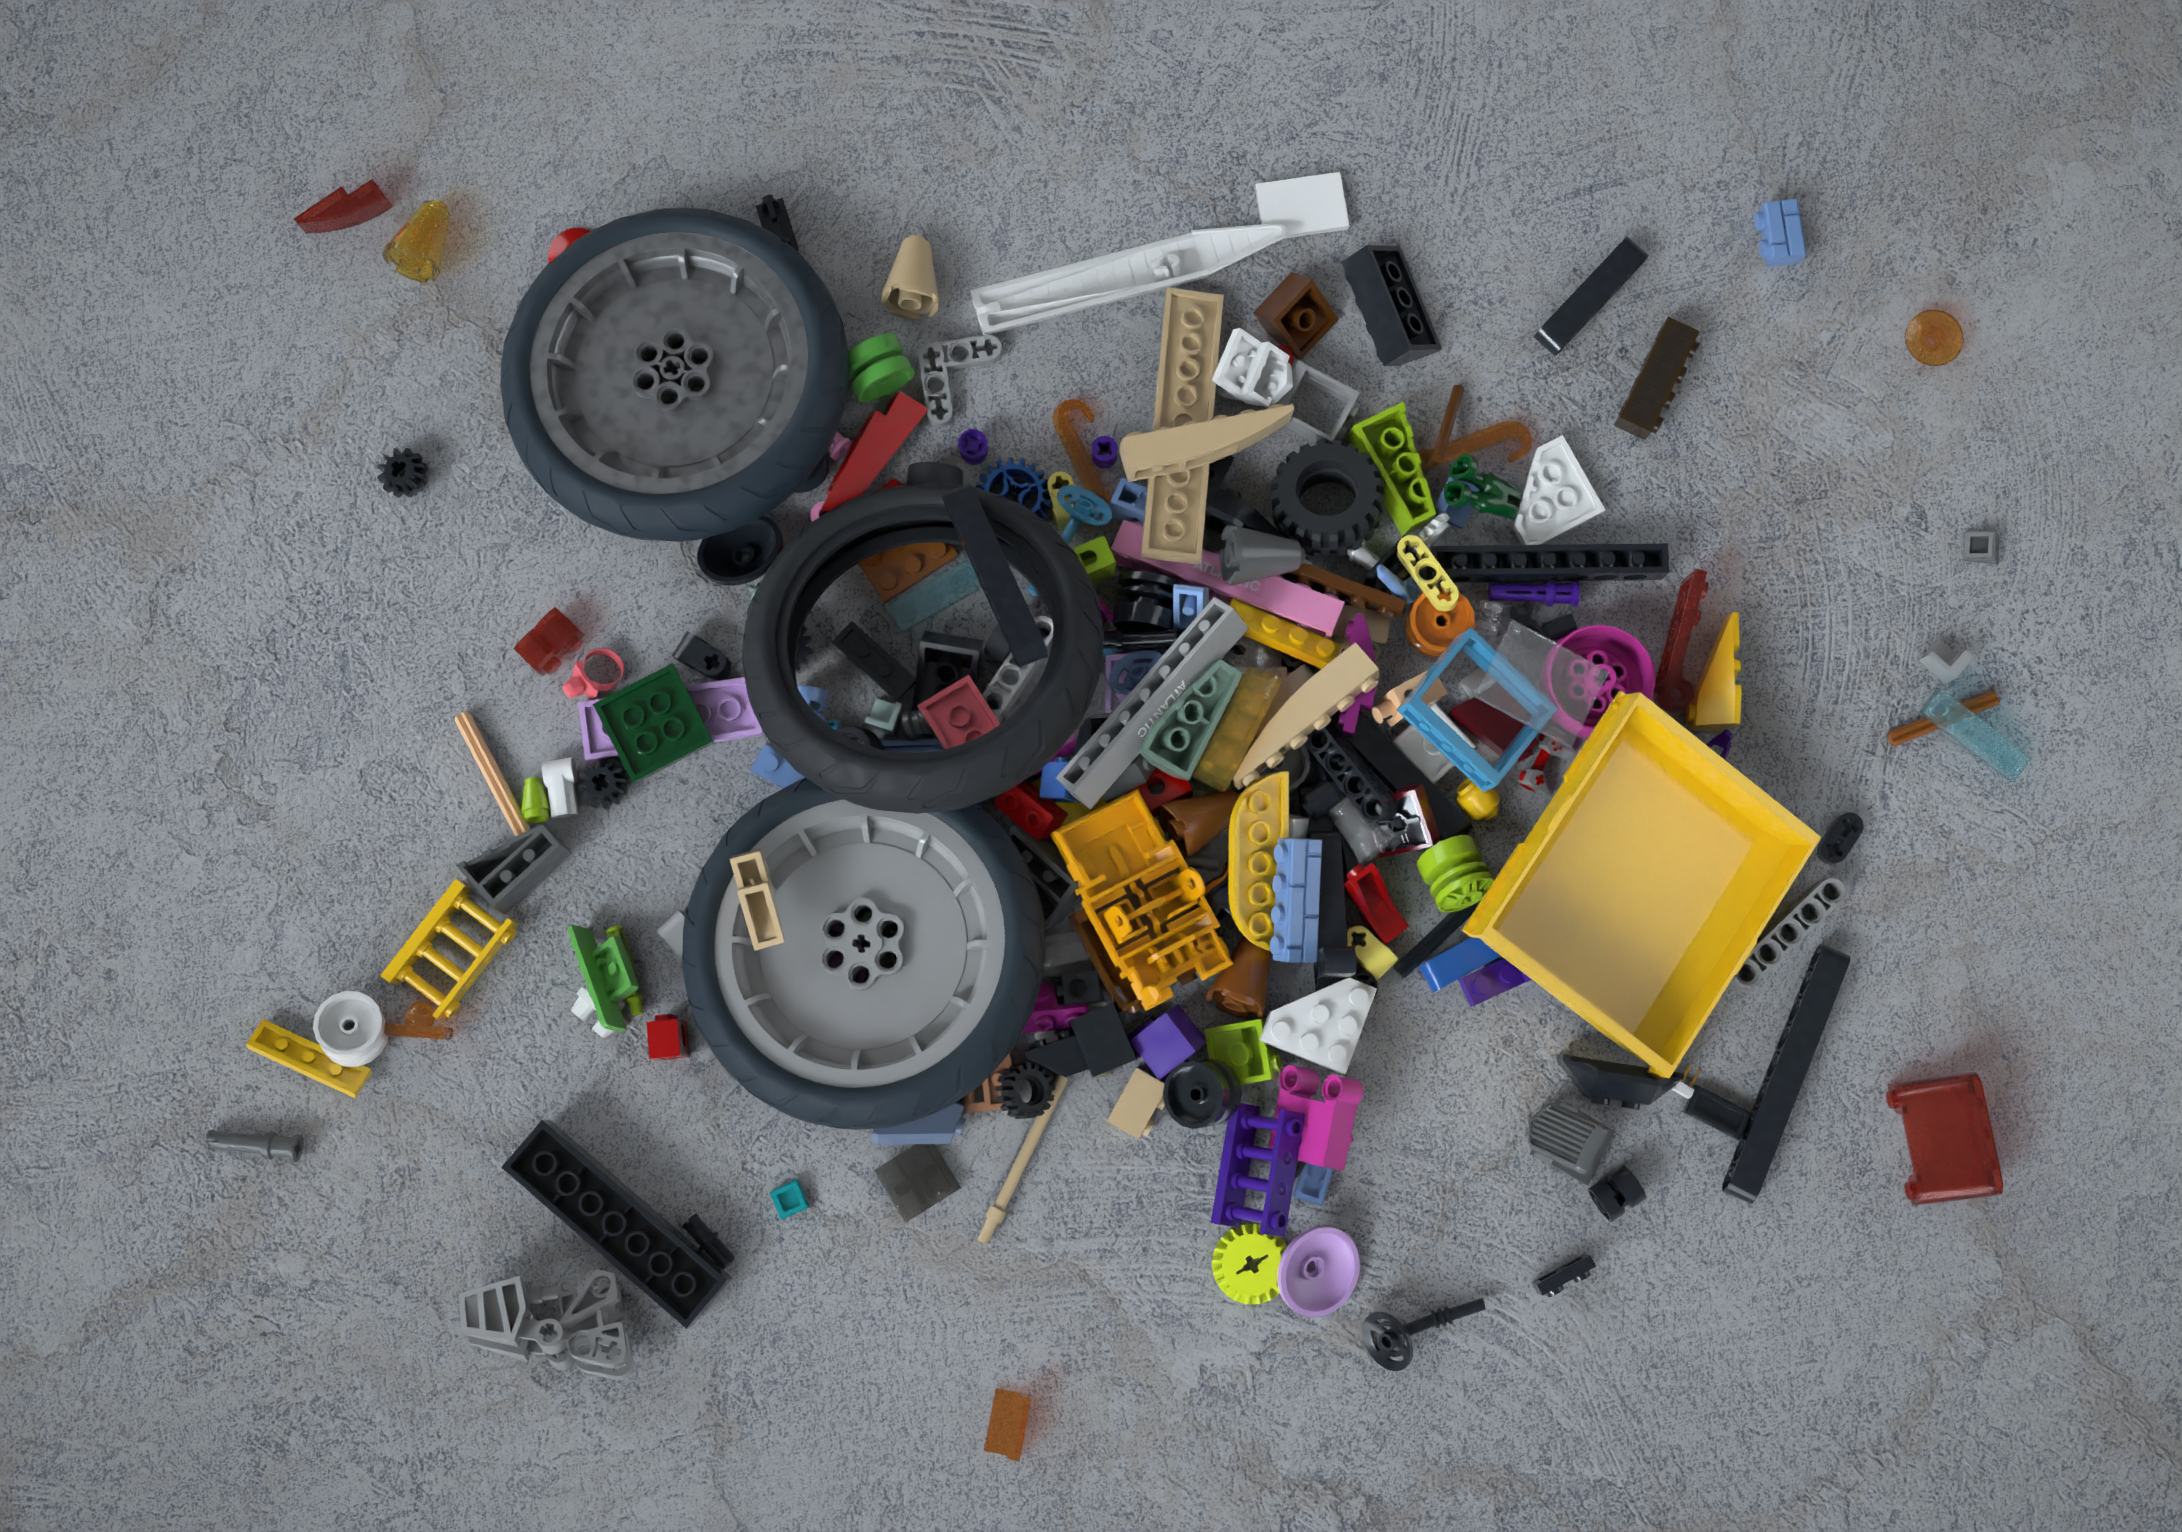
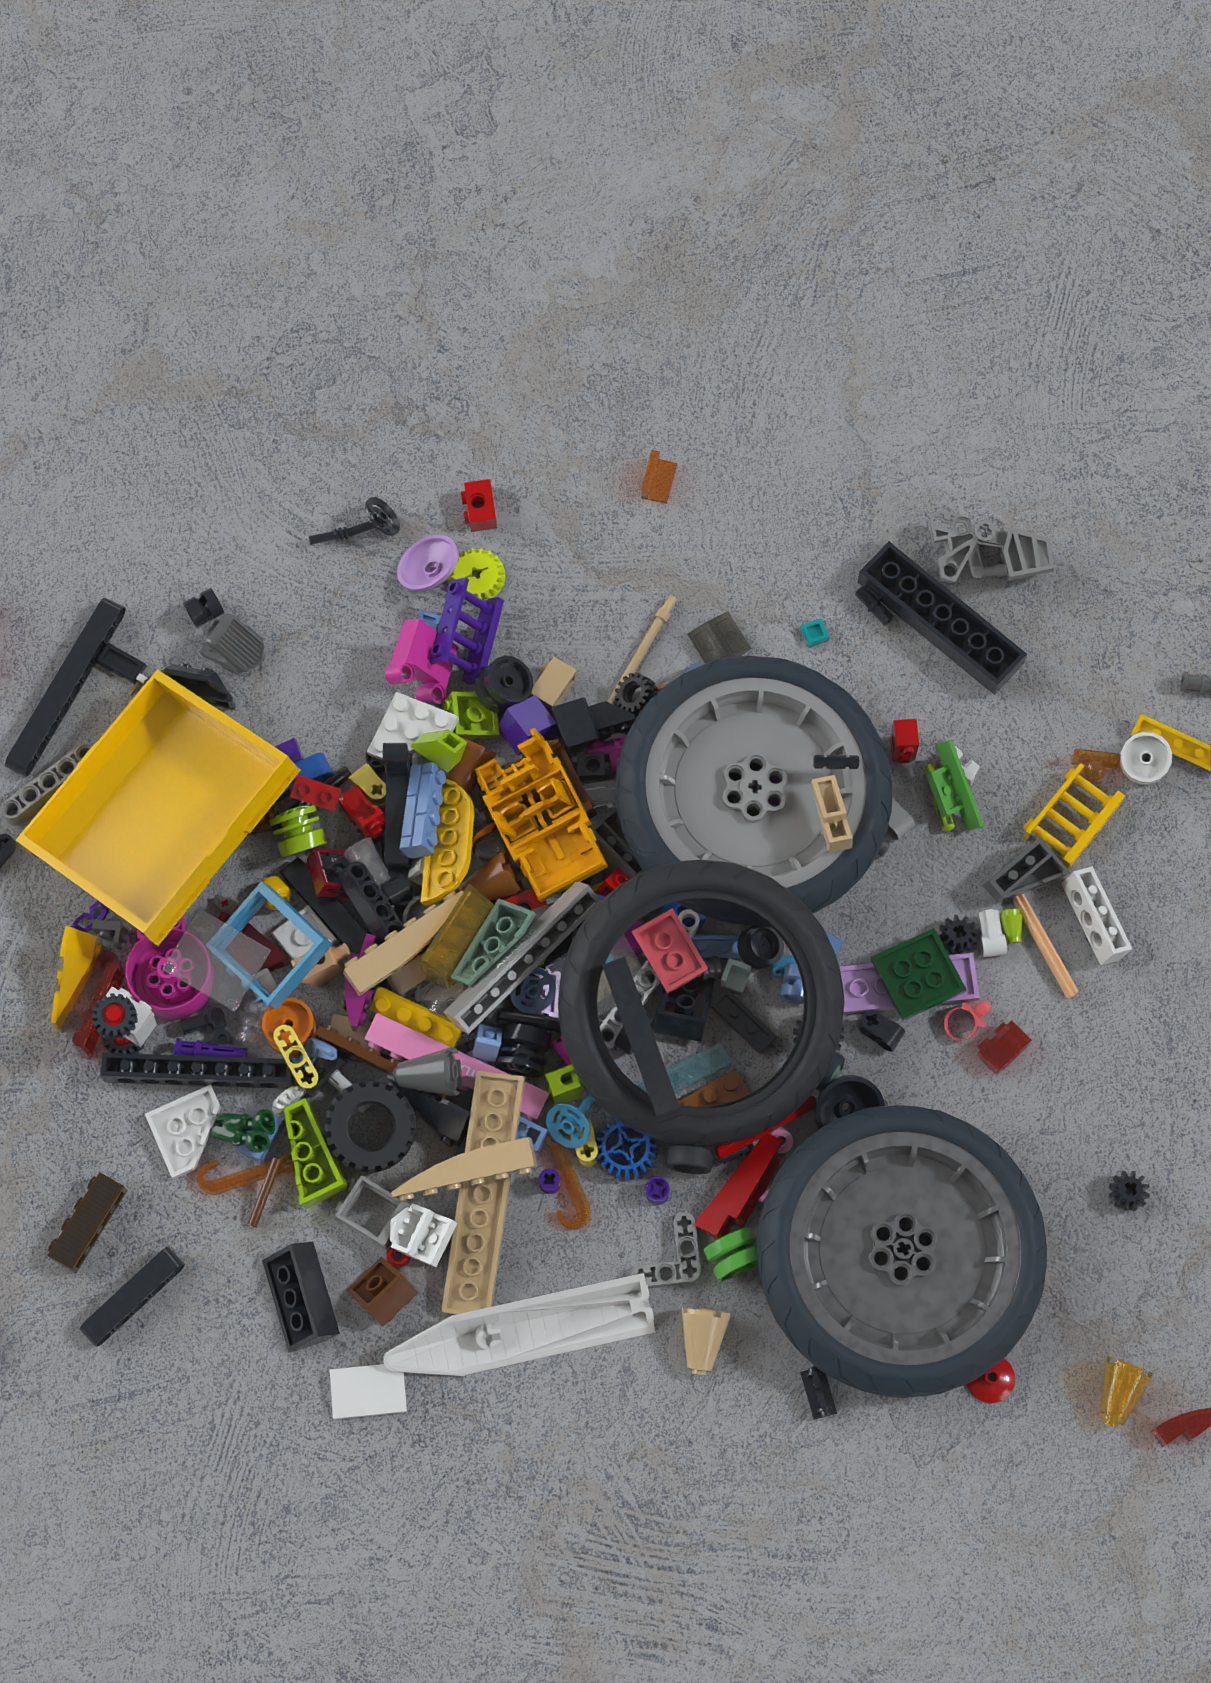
camera: 175 degrees left, 10 degrees down
(425, 812) = (1096, 916): none -> white brick
(752, 970) = (836, 761): none -> black axle
(1252, 1387) = (479, 493): none -> red brick
(1281, 986) = (441, 748): none -> lime slope
(1438, 928) = (314, 792): none -> red brick
(1574, 1270) = (254, 554): black plate -> none
(1652, 601) = (123, 1022): none -> brick

